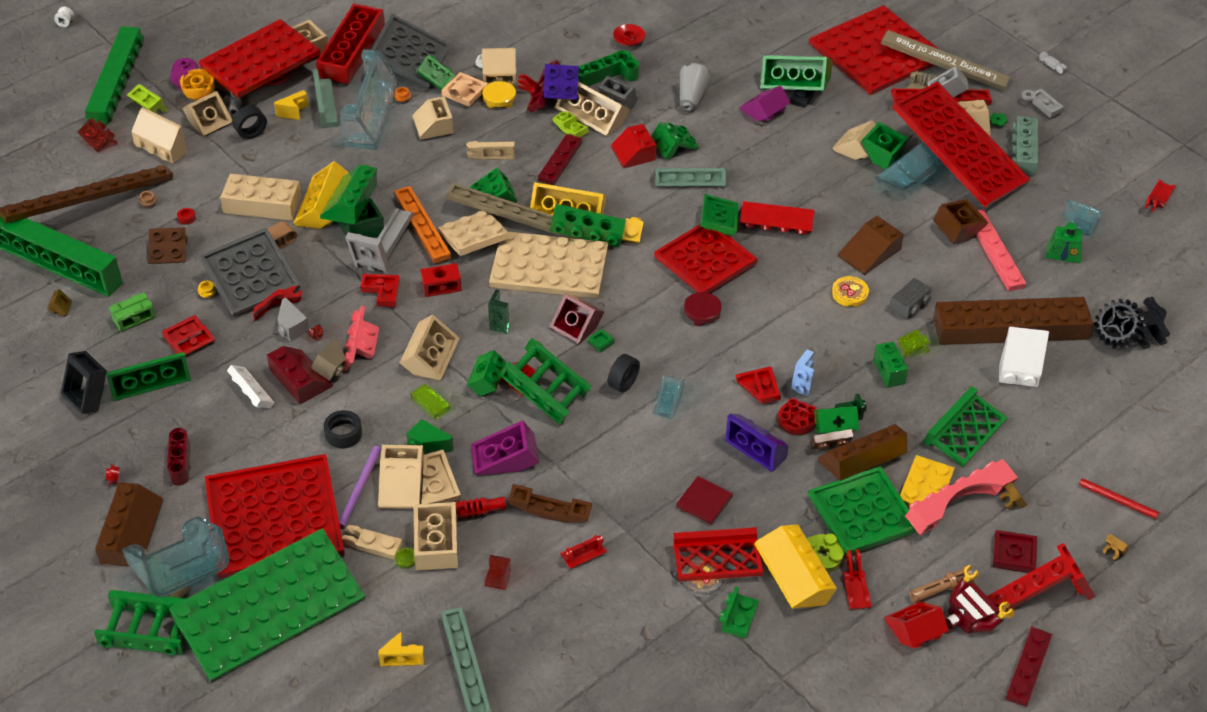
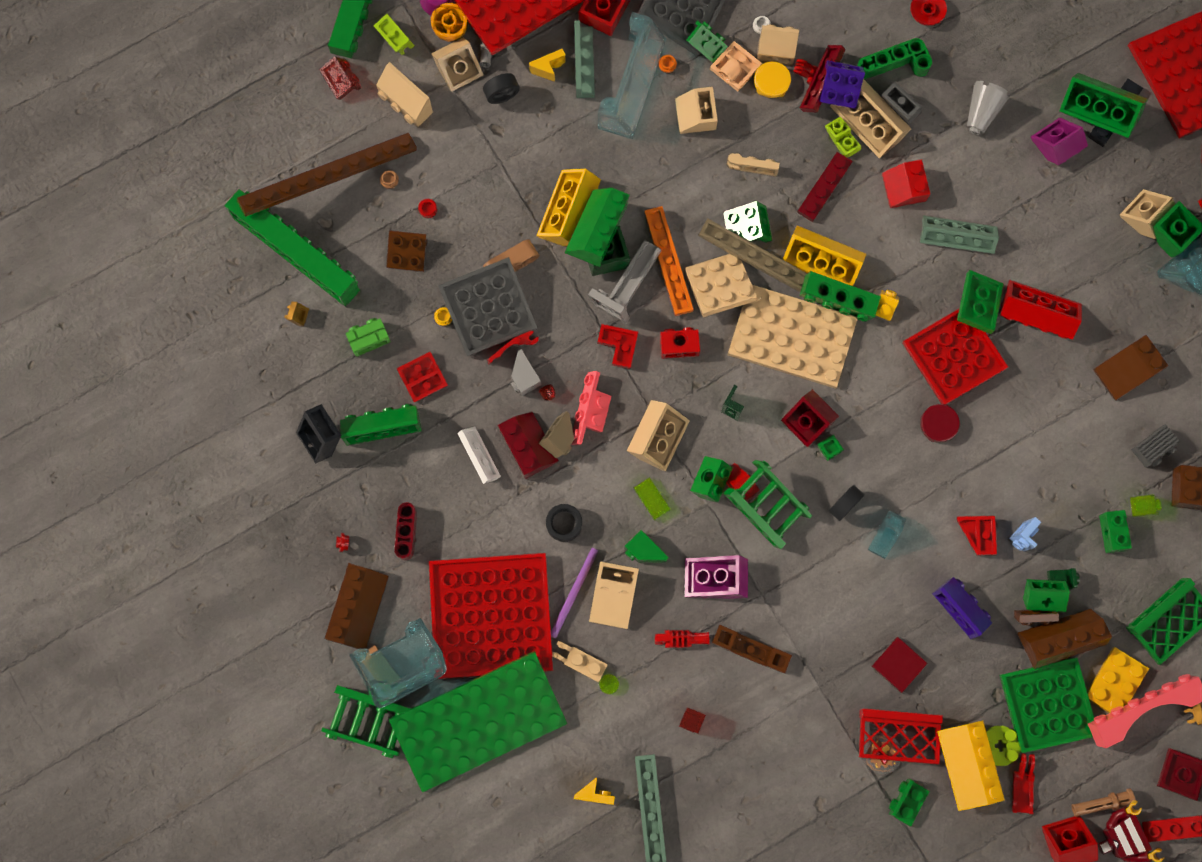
camera: 10 degrees right, 30 degrees up
(261, 197) = (506, 198): tan brick -> none
(435, 536) = (639, 671): tan brick -> none
(438, 480) = (649, 603): tan wing -> none
(584, 551) = (775, 707): red hinge -> none
(670, 137) = (950, 178): green bracket -> none
(797, 417) = (1008, 578): red tile -> none
(850, 291) = (1095, 423): tile -> none

